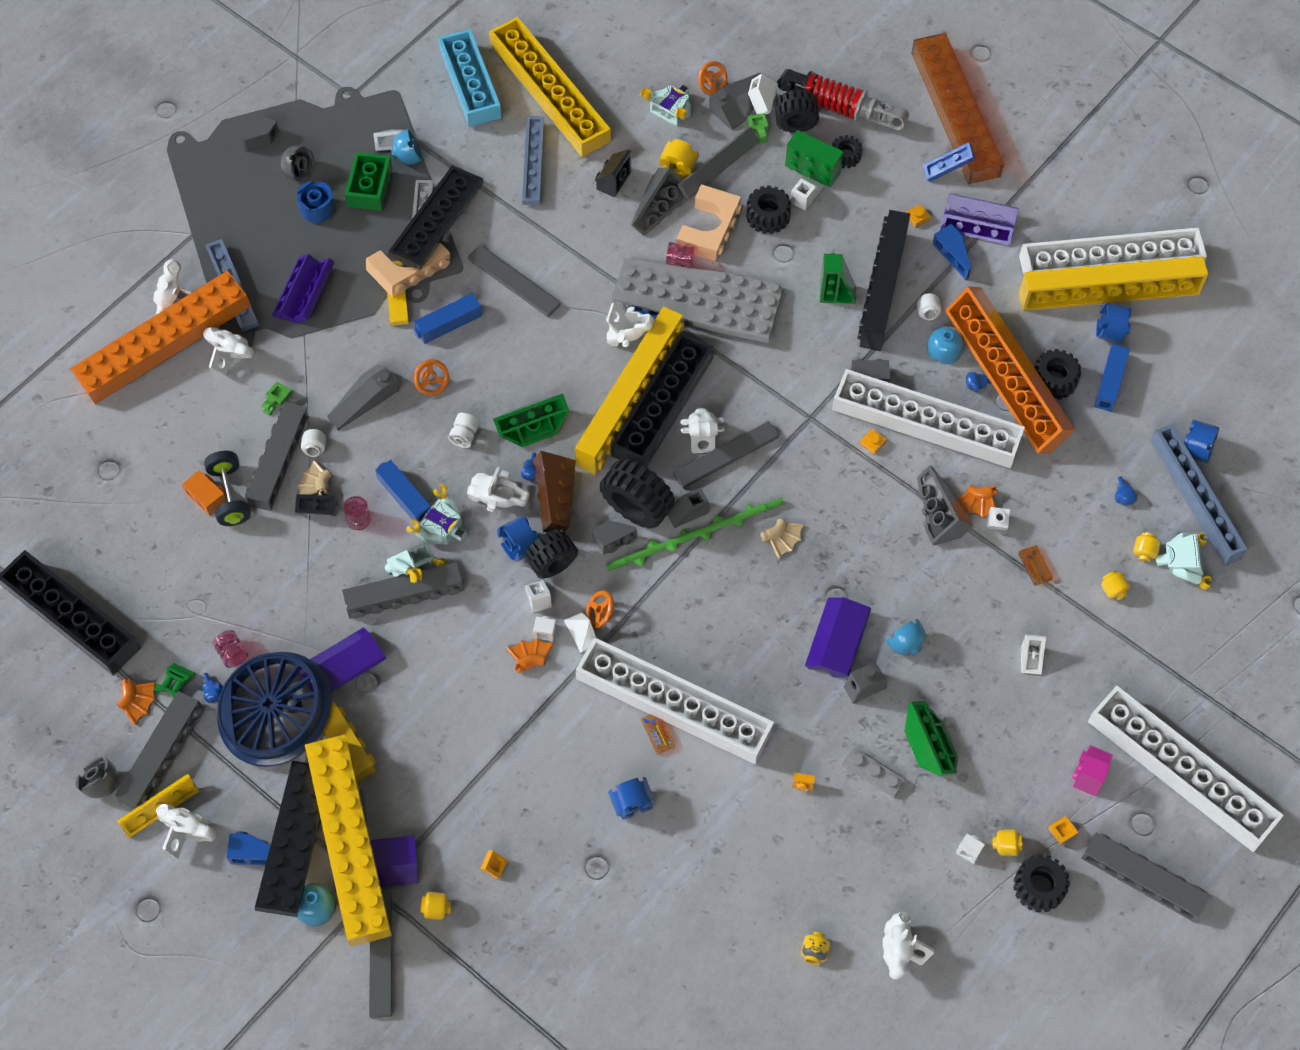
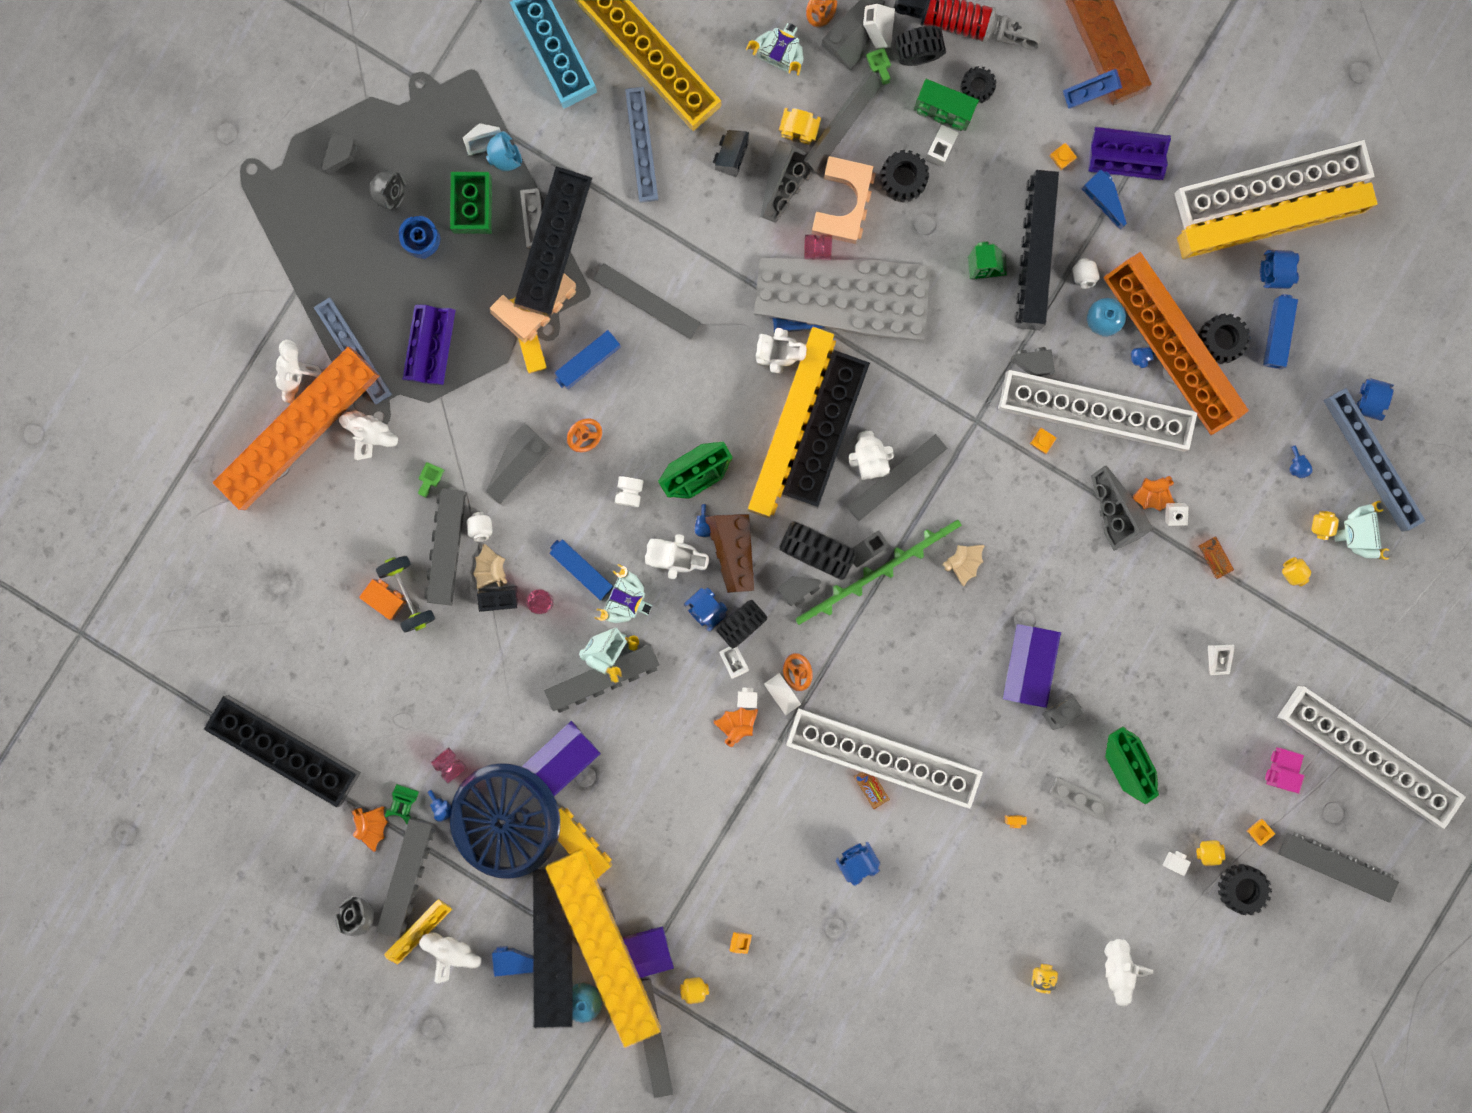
camera: 10 degrees left, 25 degrees up
(908, 639) = (1099, 661): dark azure cylinder -> none

